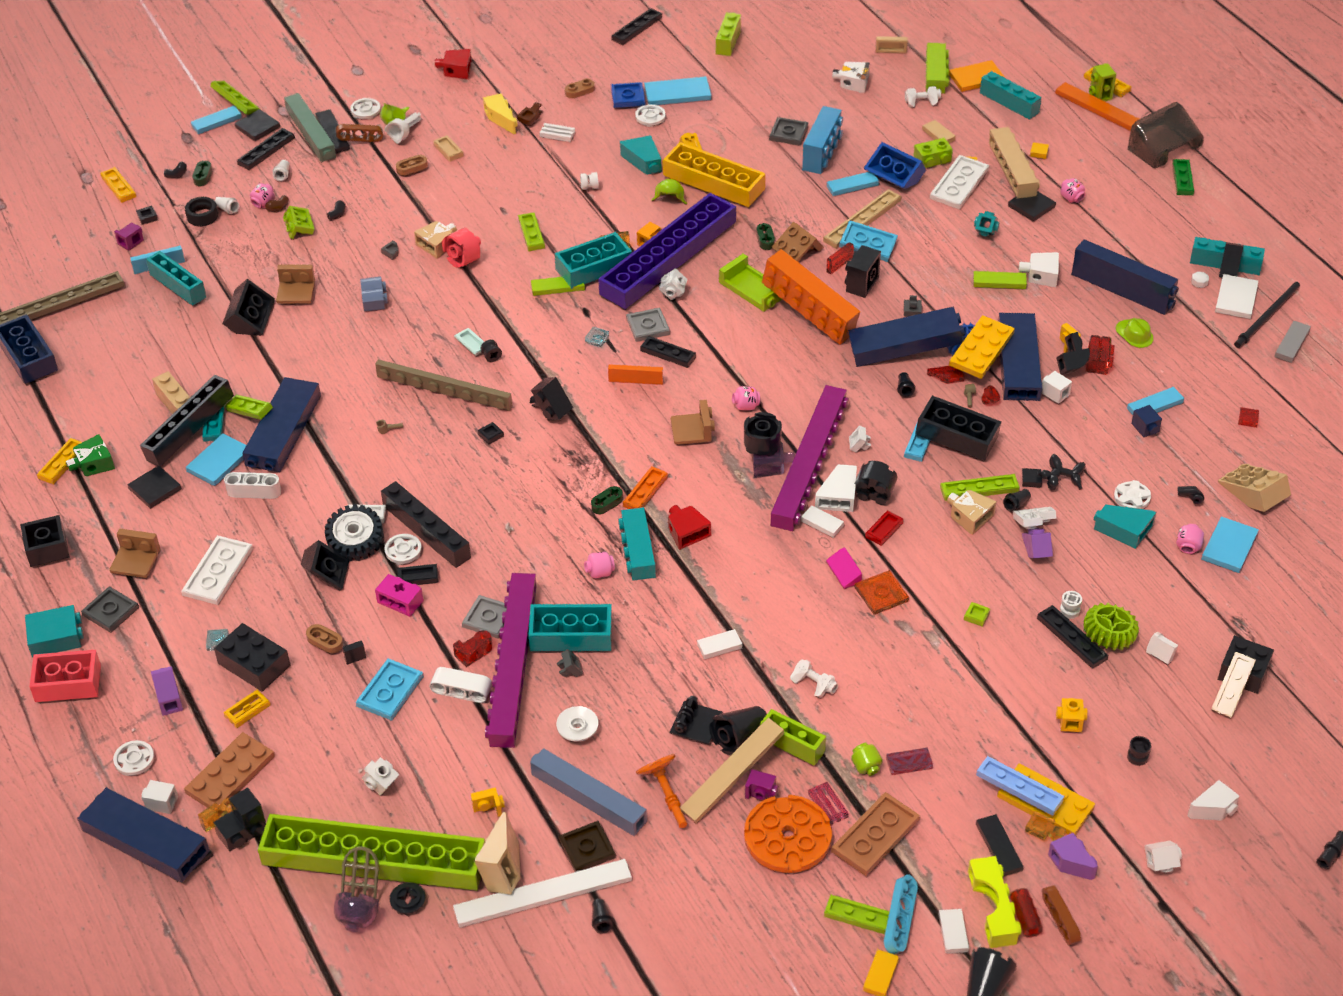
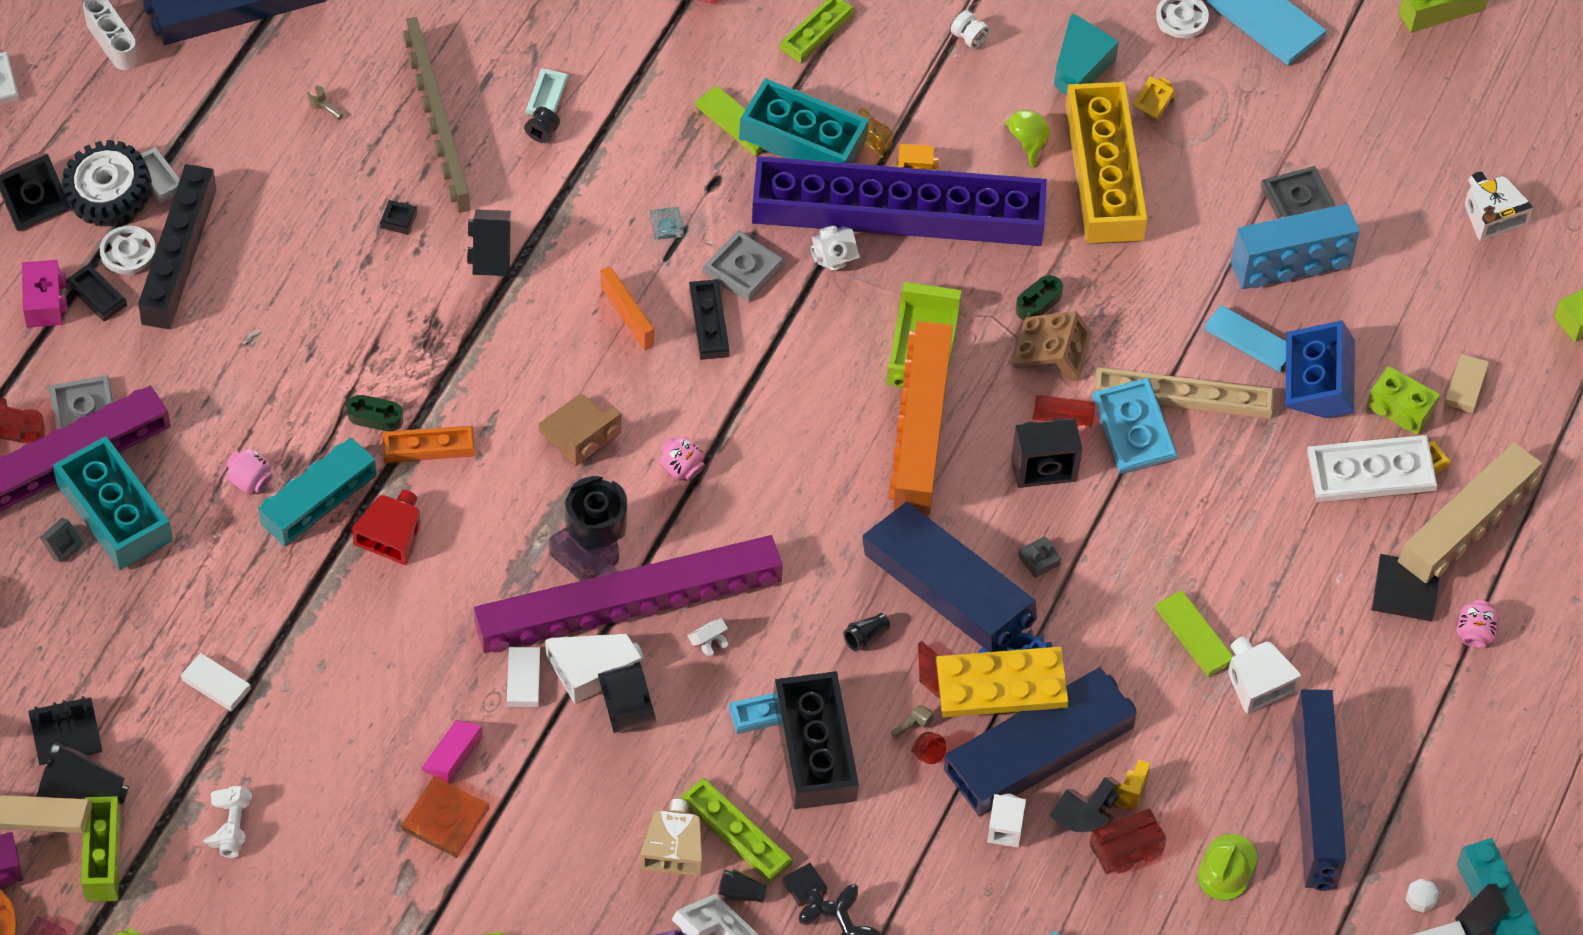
camera: 50 degrees right, 10 degrees up
(884, 528) = (568, 756): red tile -> none
(932, 94) = (1545, 326): white piece -> none
(982, 219) = (1293, 551): teal brick -> none
(1039, 150) = (1543, 533): yellow tile -> none

